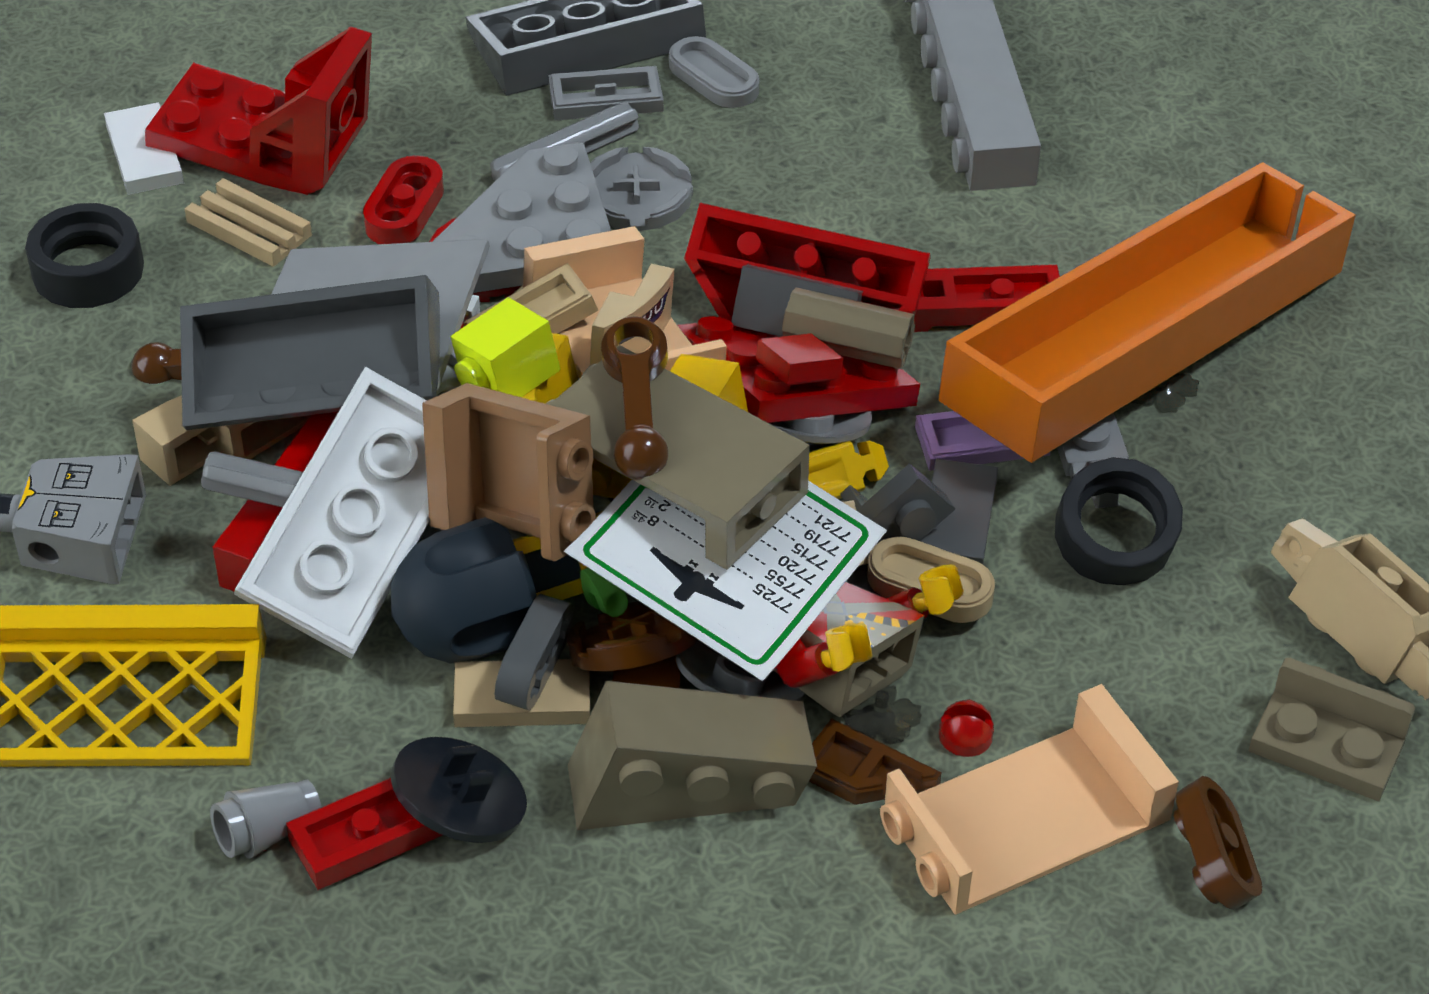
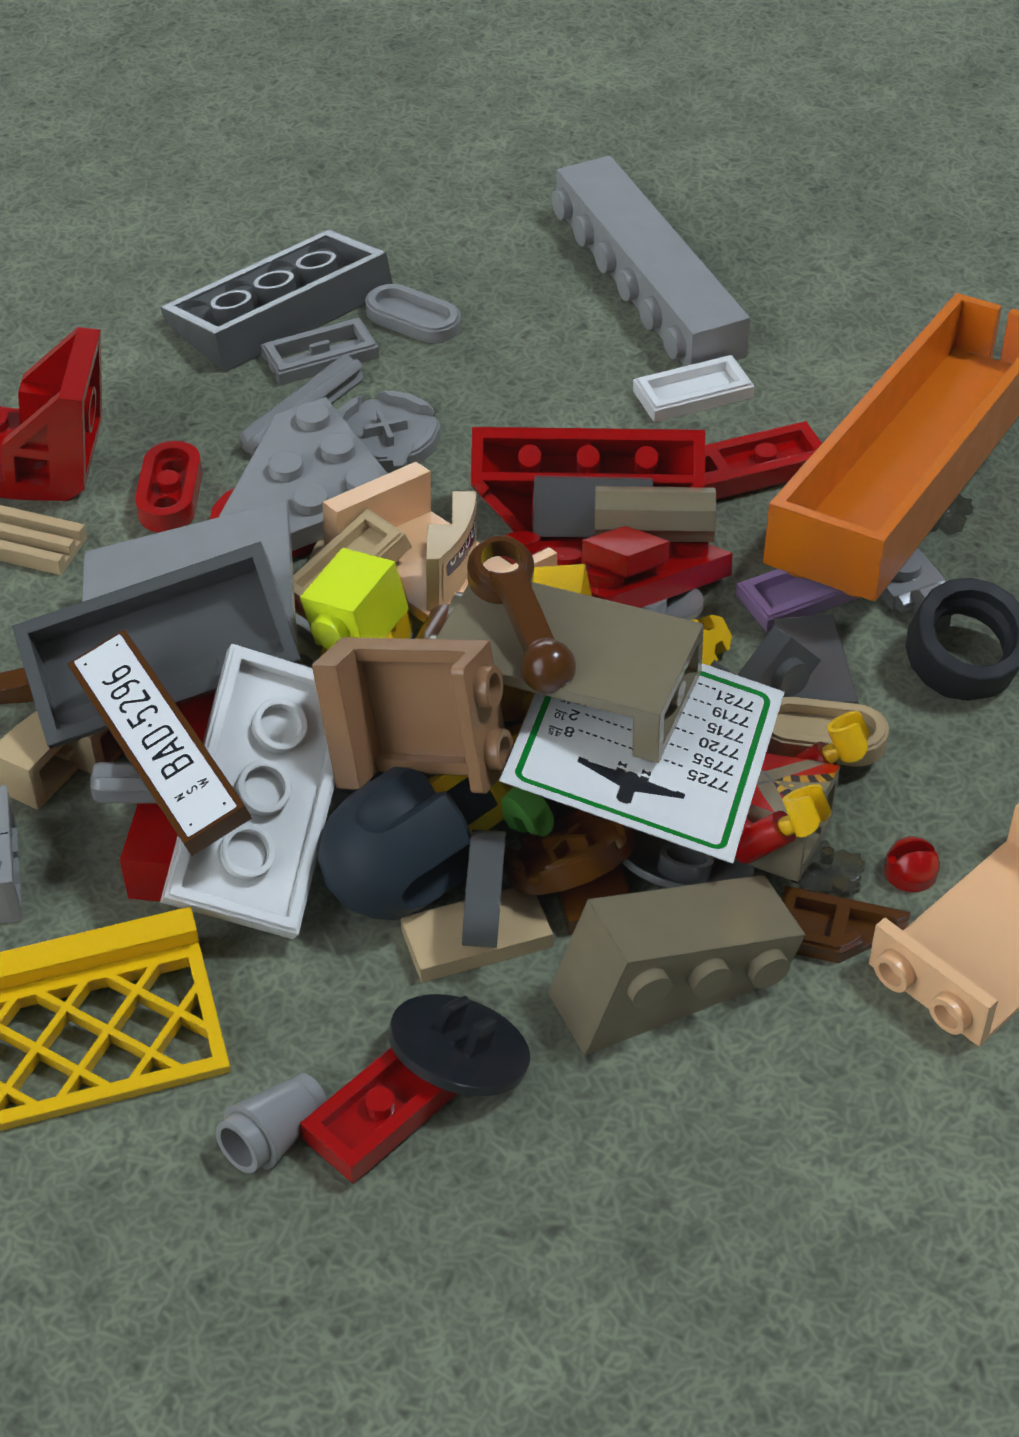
camera: 15 degrees left, 0 degrees up
(271, 445) = (159, 742): none -> white tile
(964, 207) = (693, 388): none -> white tile

